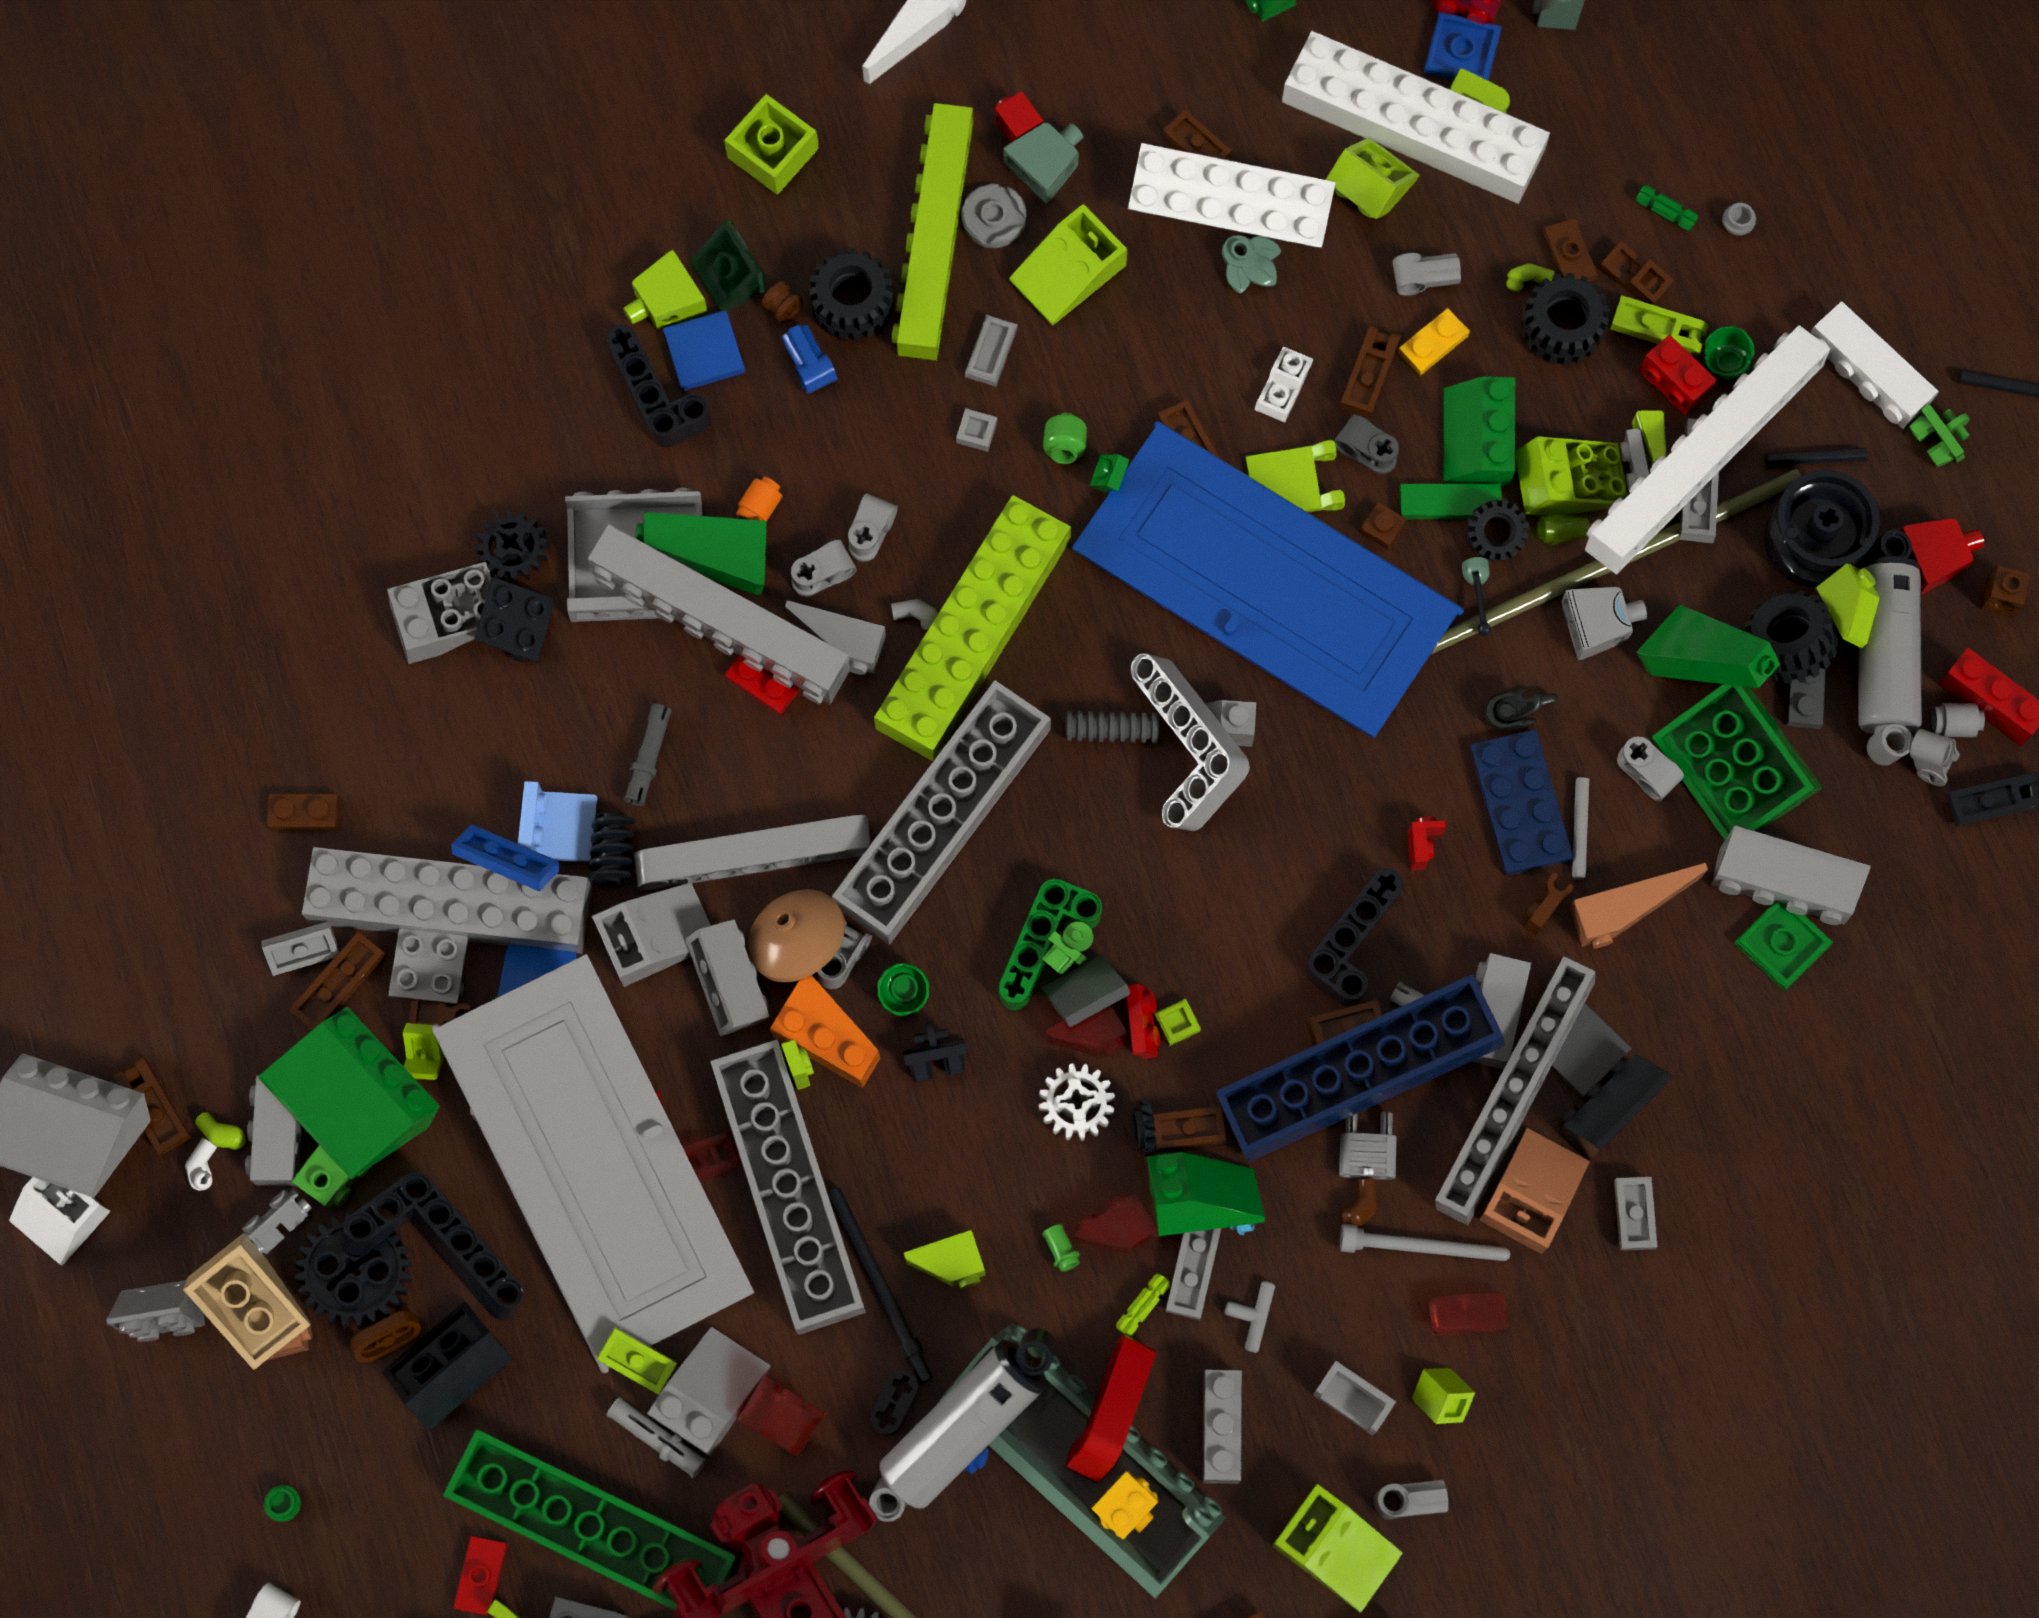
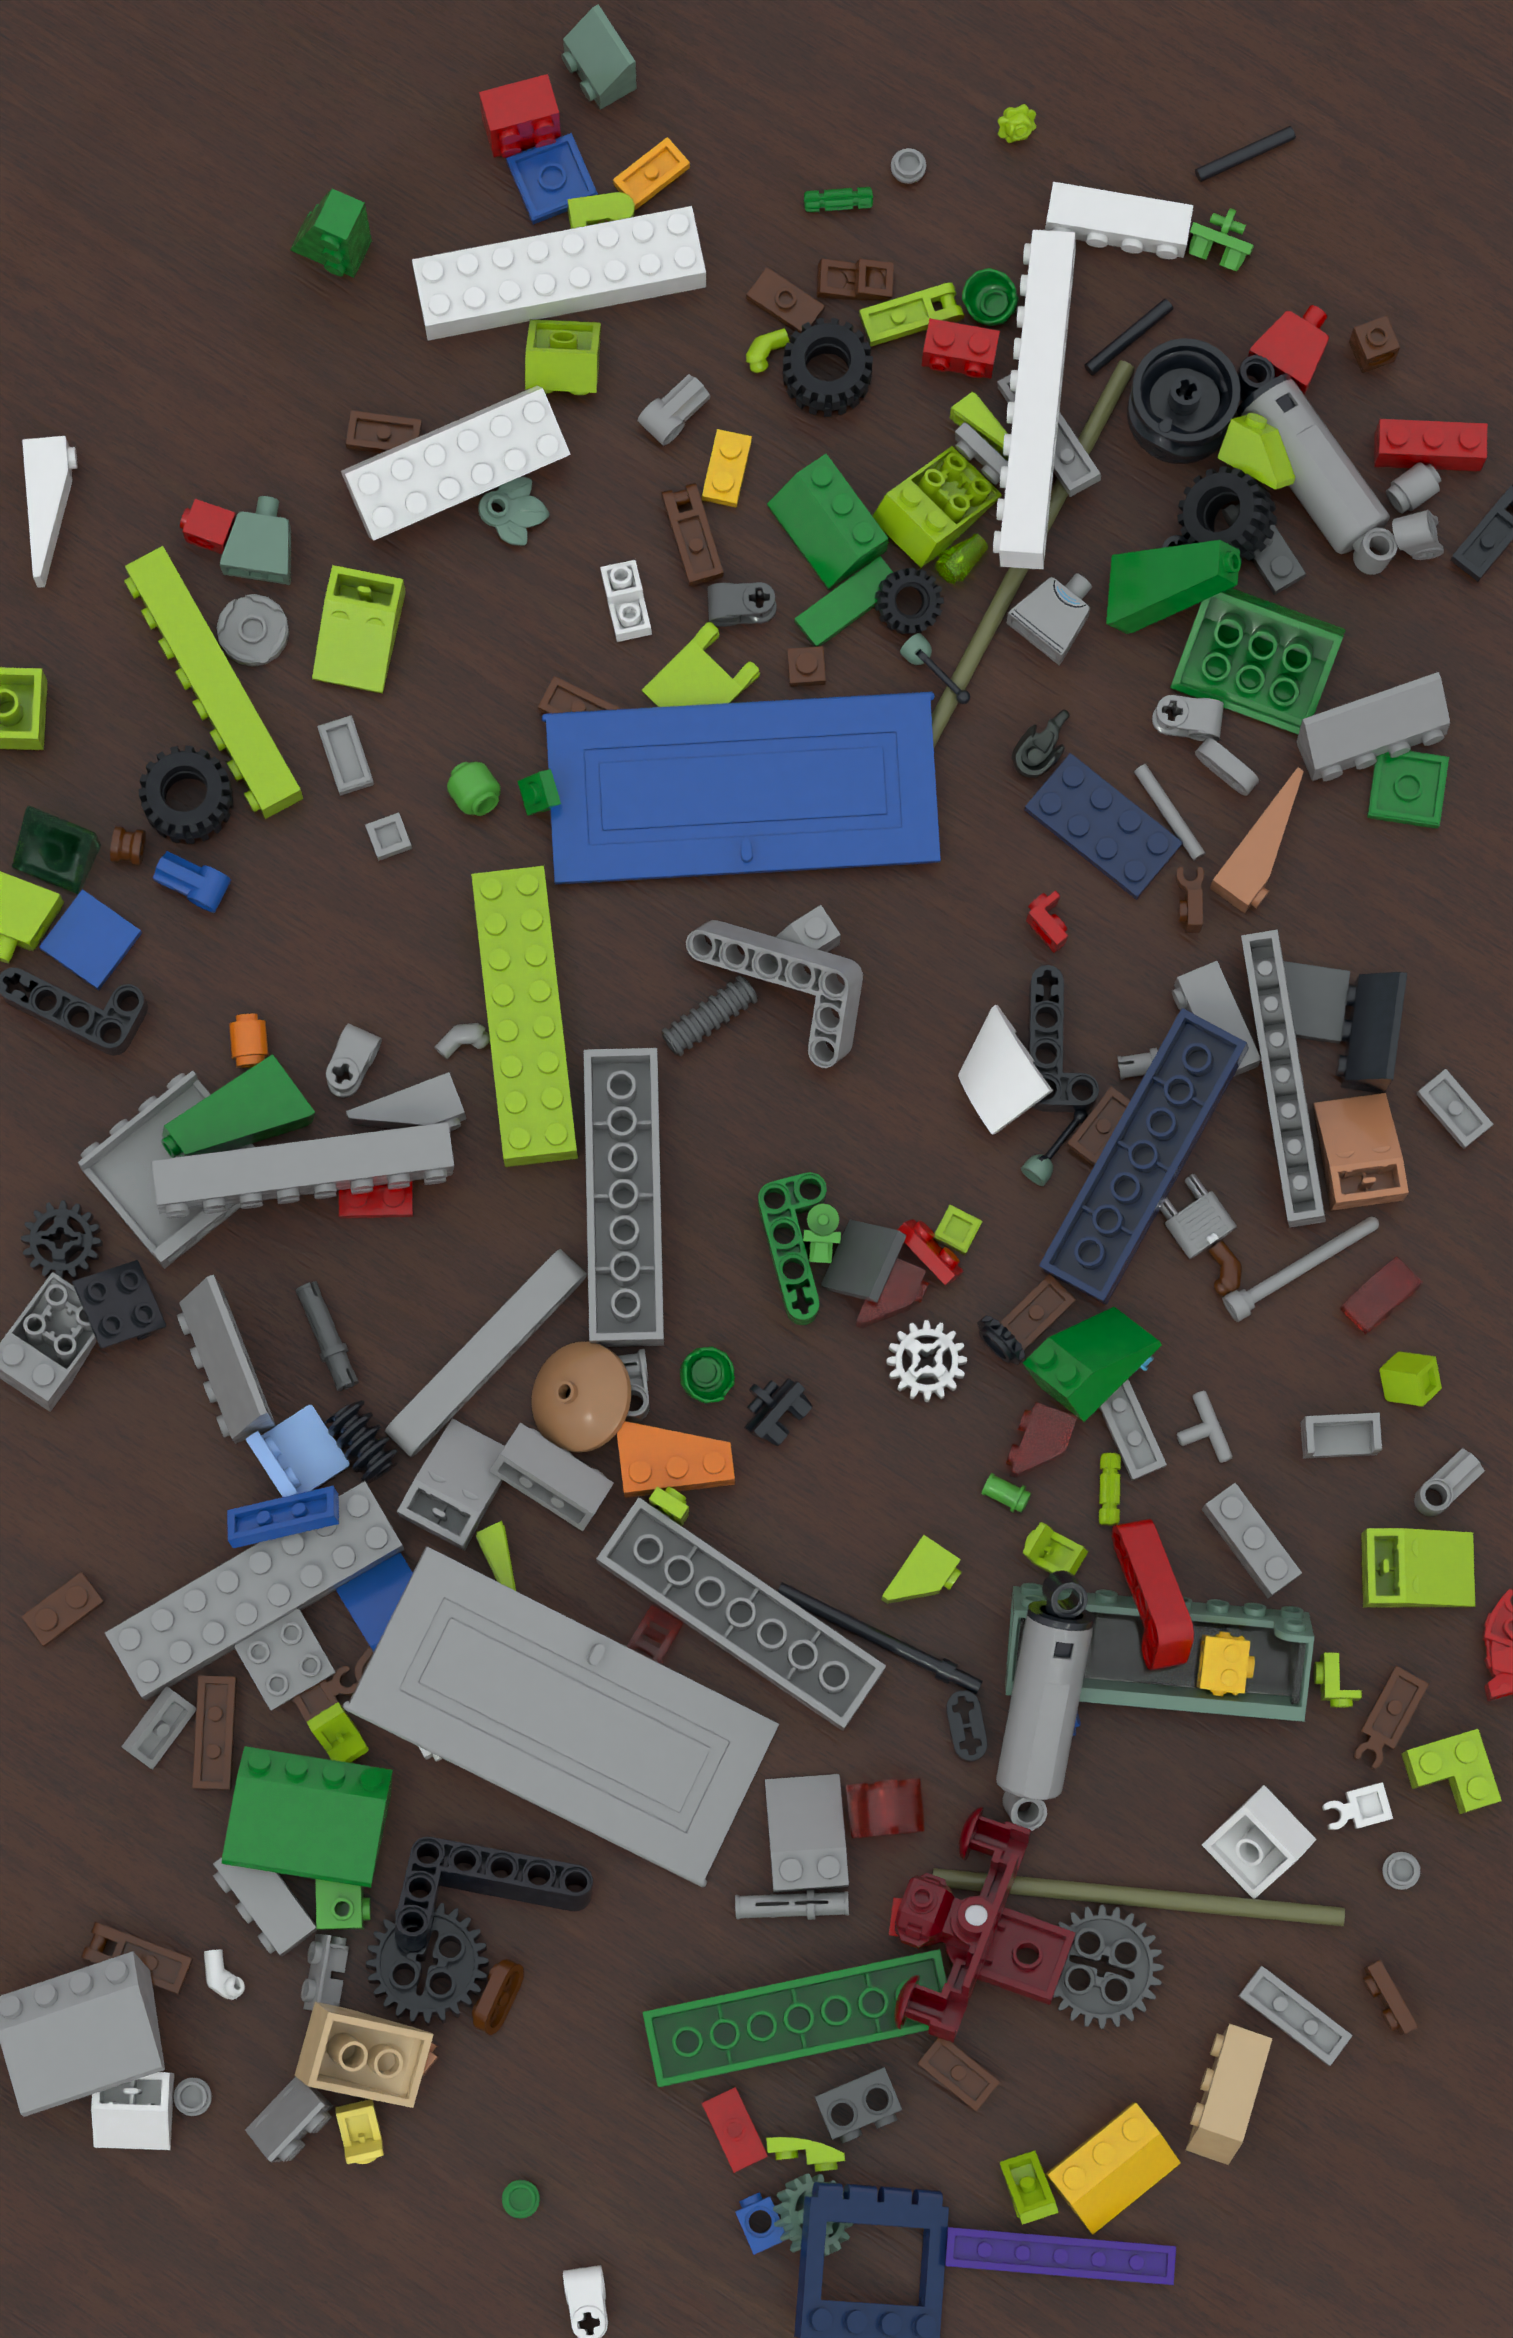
camera: 40 degrees left, 5 degrees up
(109, 1238) = (192, 2096): none -> light grey plate
(205, 1359) = (360, 2132): none -> light yellow bracket
(220, 1134) = (216, 1937): lime arm -> none
(447, 1366) = (569, 1980): black slope -> none
(559, 716) = (225, 1361): none -> light grey slope
(636, 1360) = (726, 1854): lime plate -> none
(645, 1003) = (496, 1551): none -> lime slope
(871, 523) = (363, 988): light grey piece -> none
(1062, 1319) = (1053, 1551): none -> lime bracket
(1202, 1576) = (1328, 1676): none -> lime bracket
(1276, 1020) = (1040, 1167): none -> hinge
(1298, 928) = (1001, 1074): none -> white slope
(1539, 94) = (652, 172): none -> light orange plate
(1650, 825) = (1227, 766): none -> light grey beam
(1846, 243) = (1016, 123): none -> lime plant

